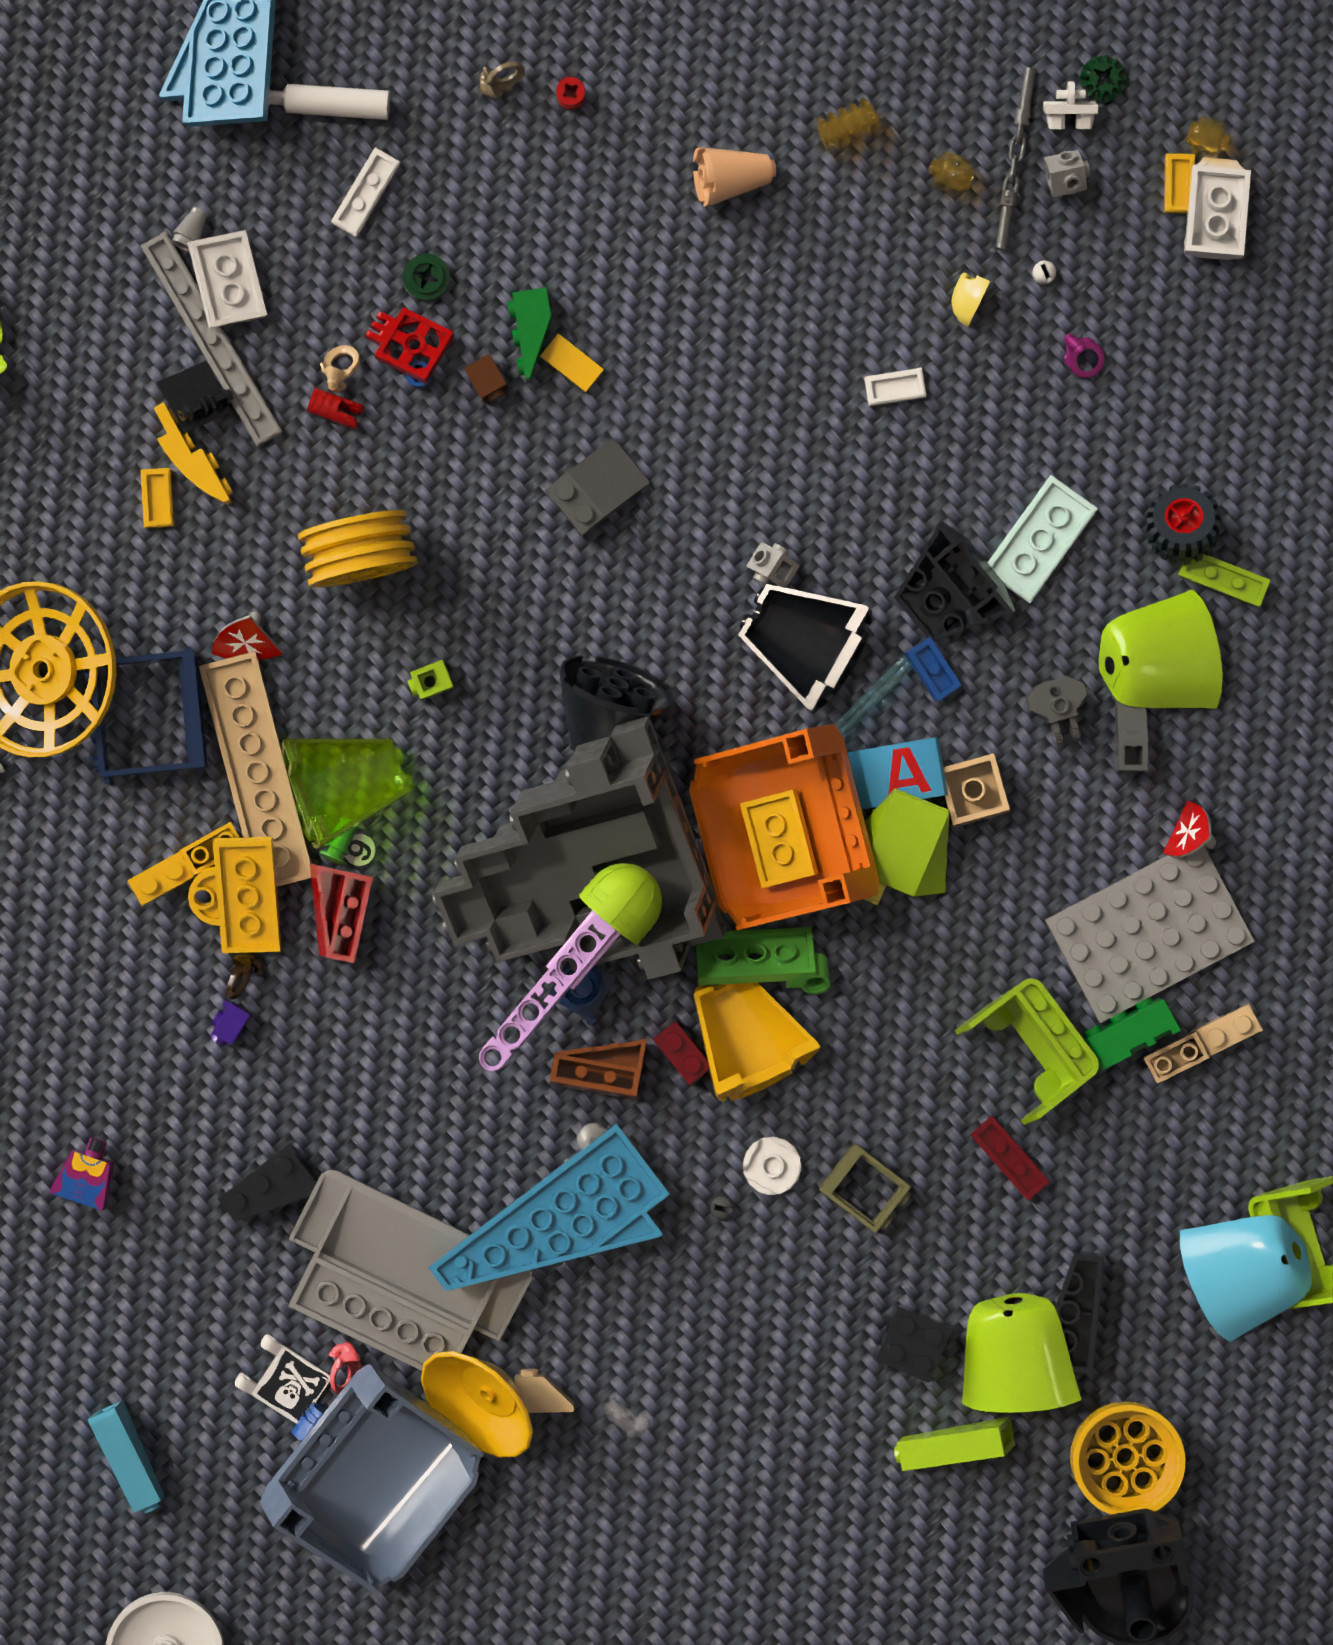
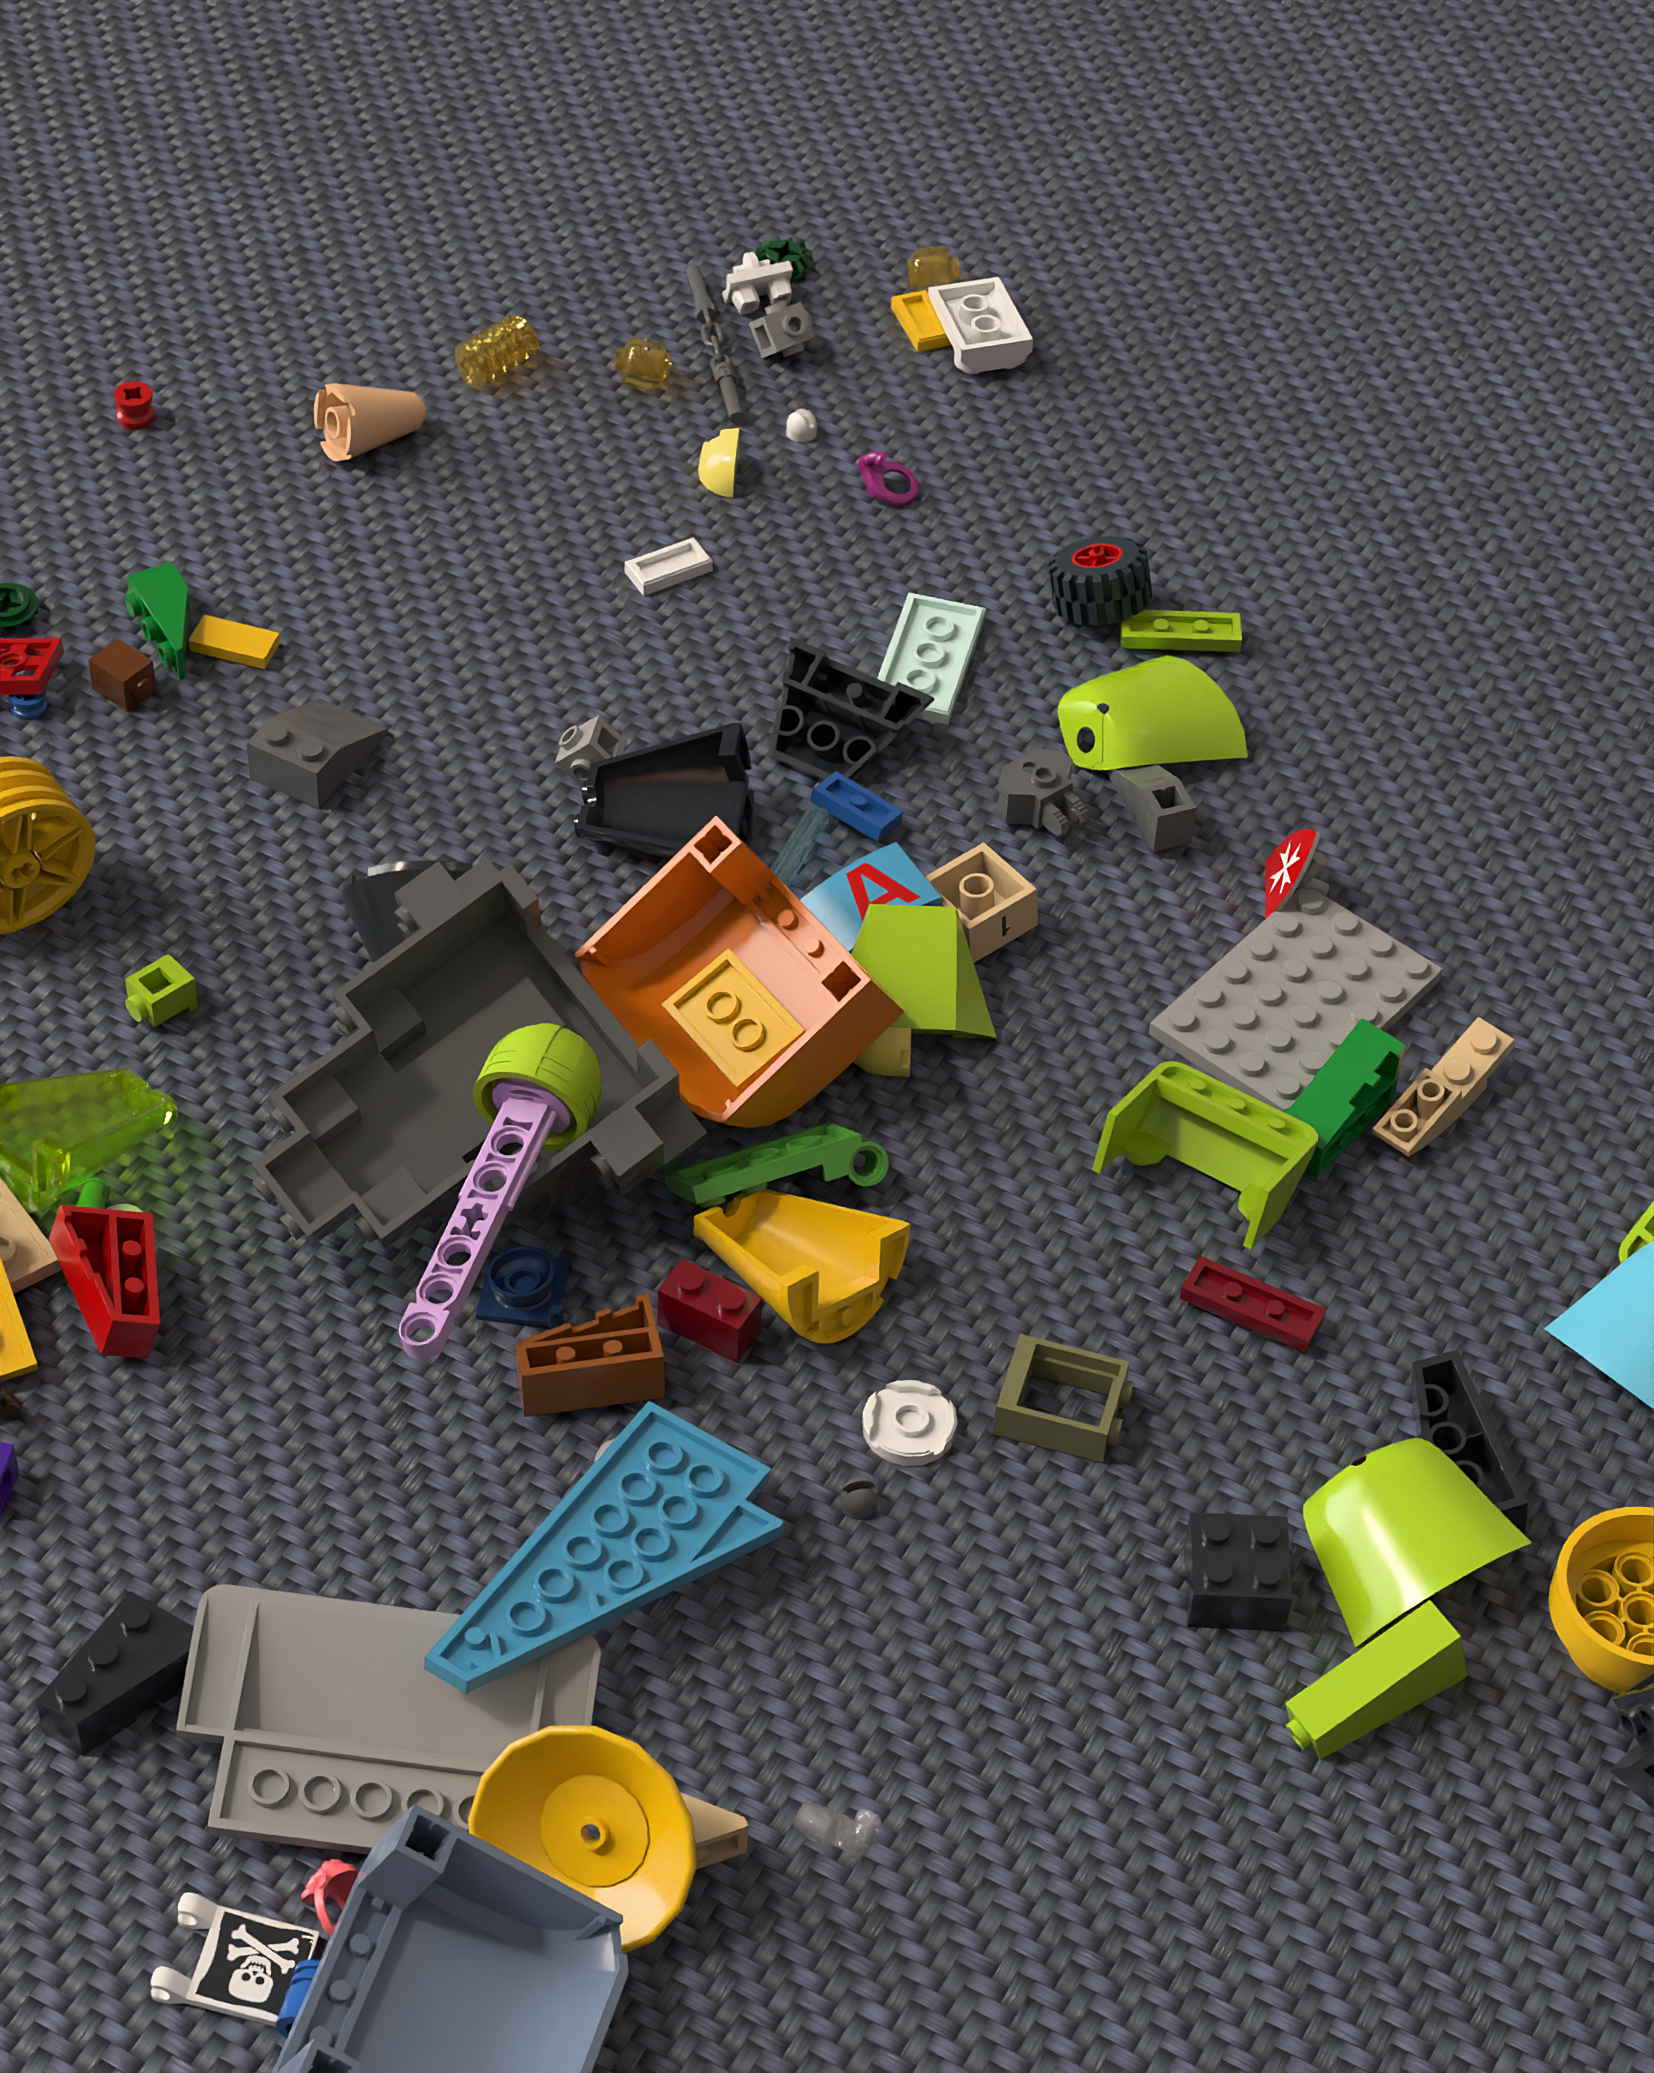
camera: 25 degrees left, 40 degrees down
(494, 86) = (27, 421): dark tan piece -> none

